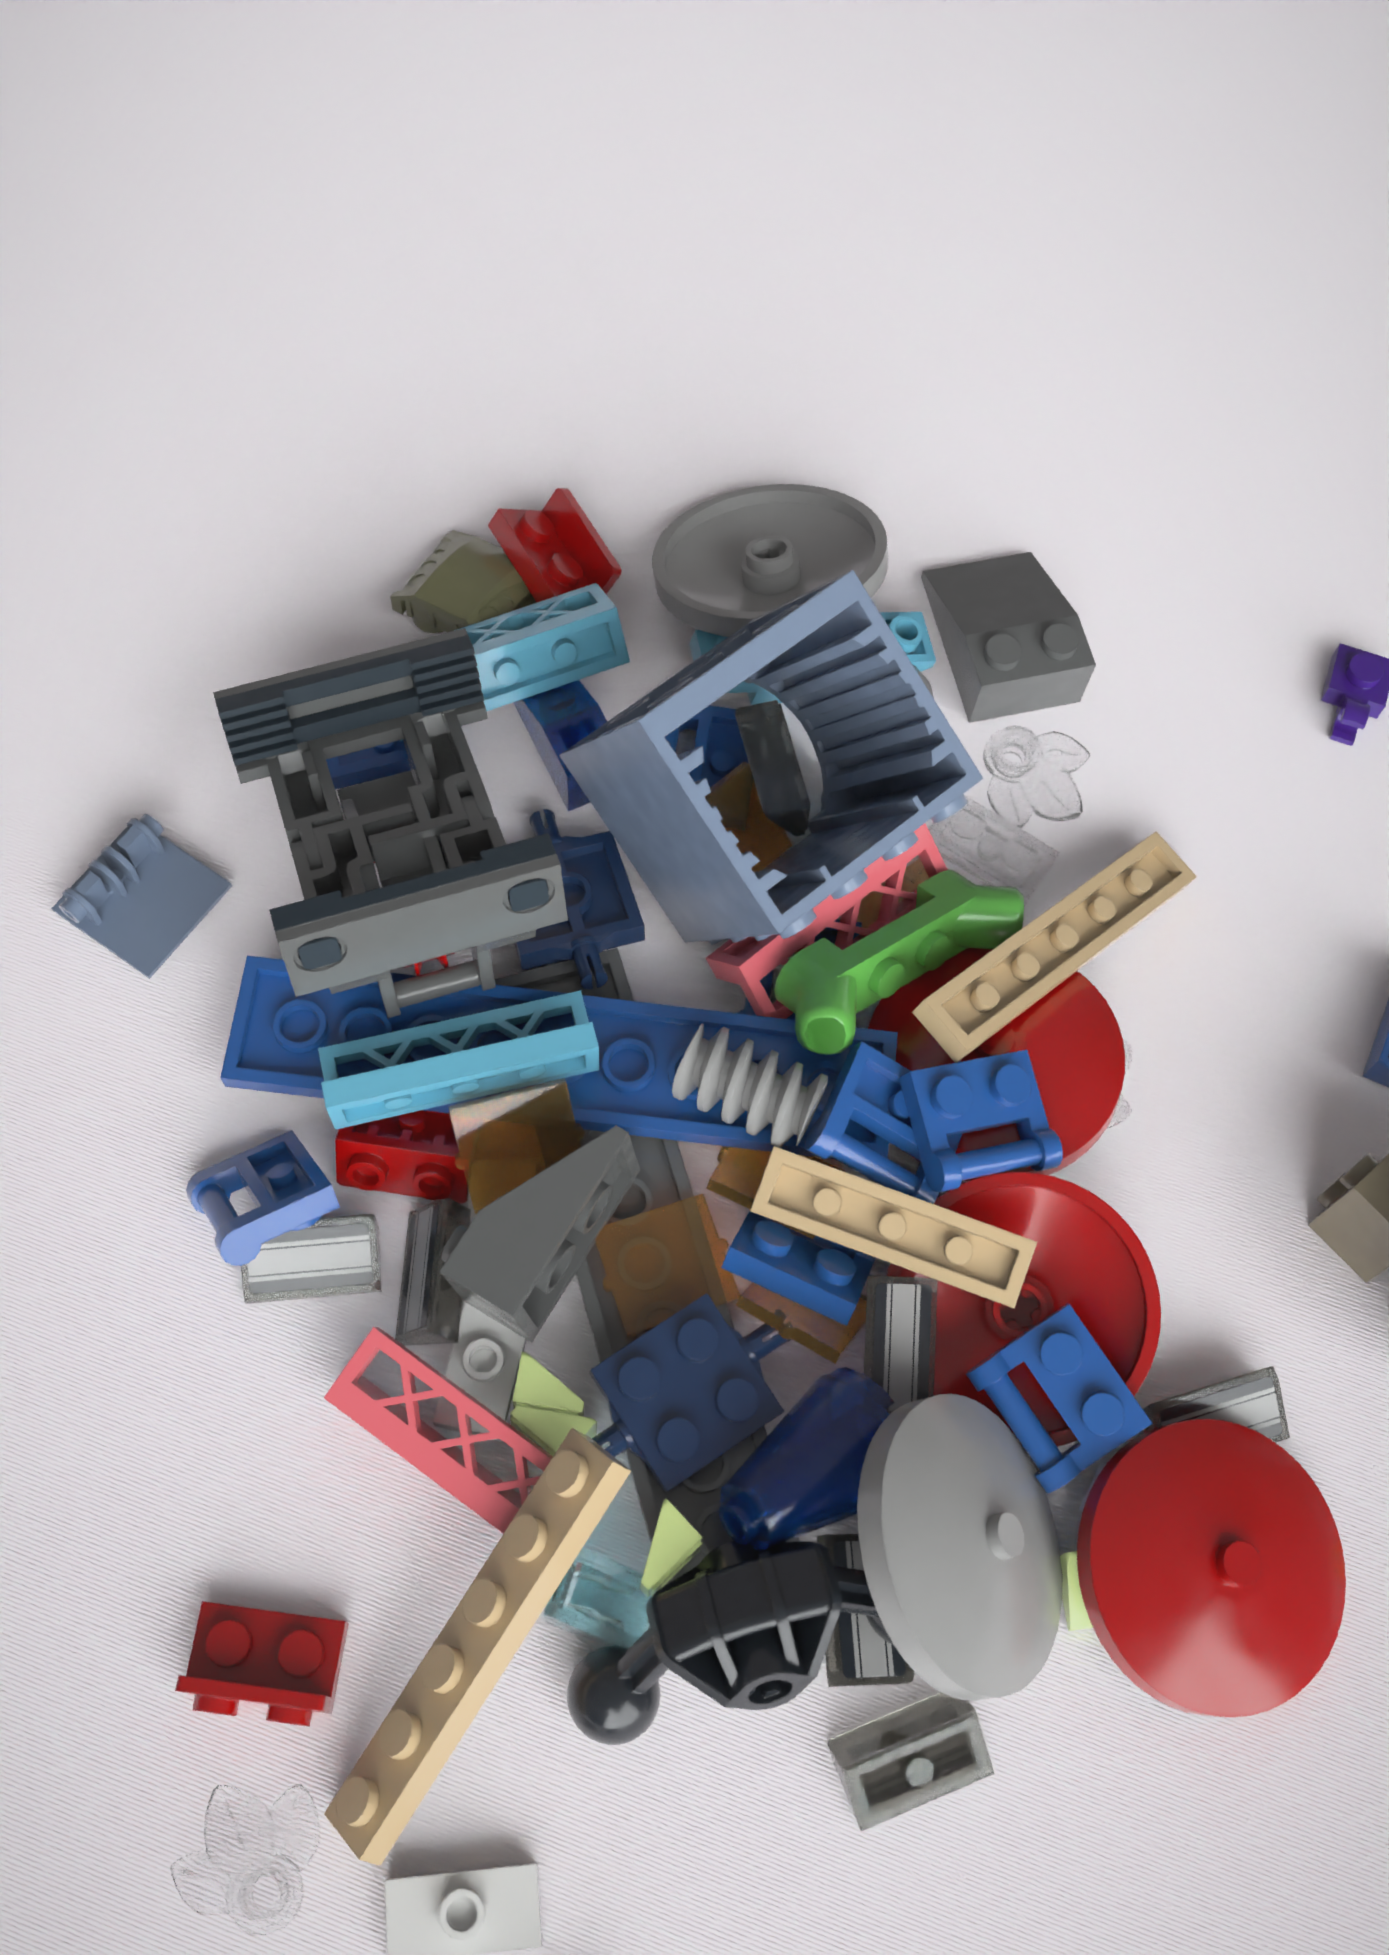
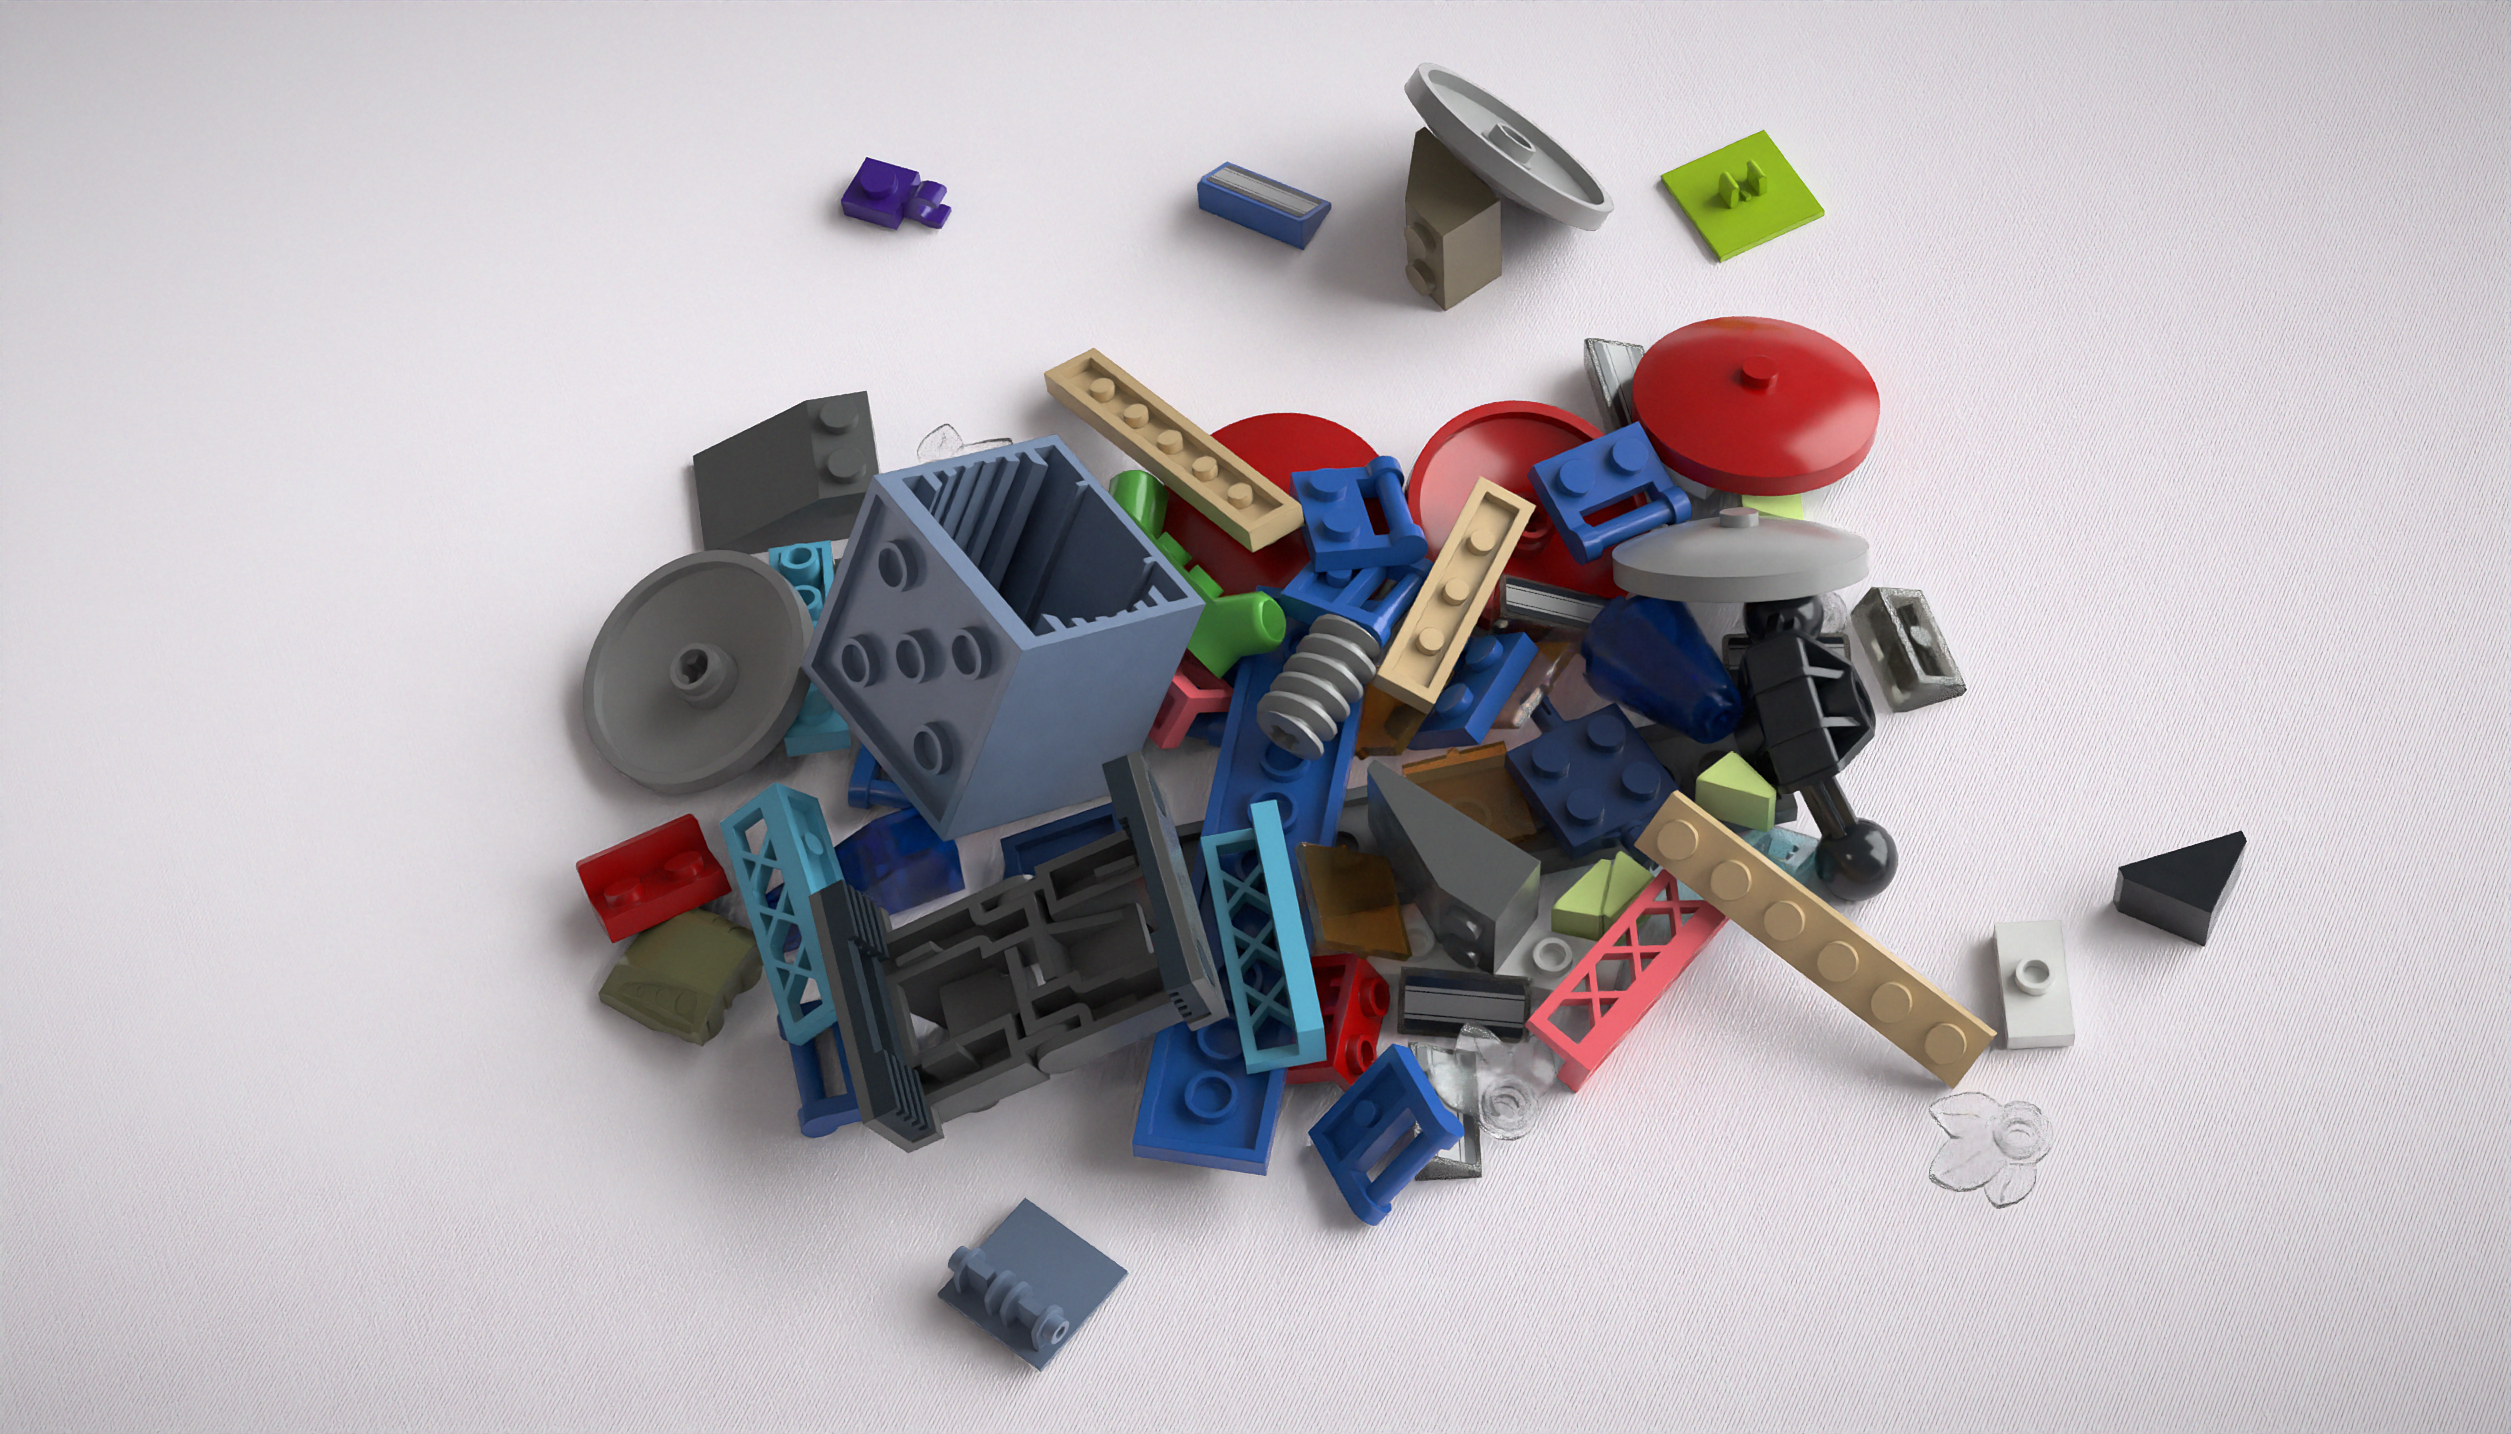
camera: 75 degrees left, 10 degrees down
(264, 1660) = (1820, 1141): red bracket -> none
(348, 1297) = (1492, 1074): none -> clear plate

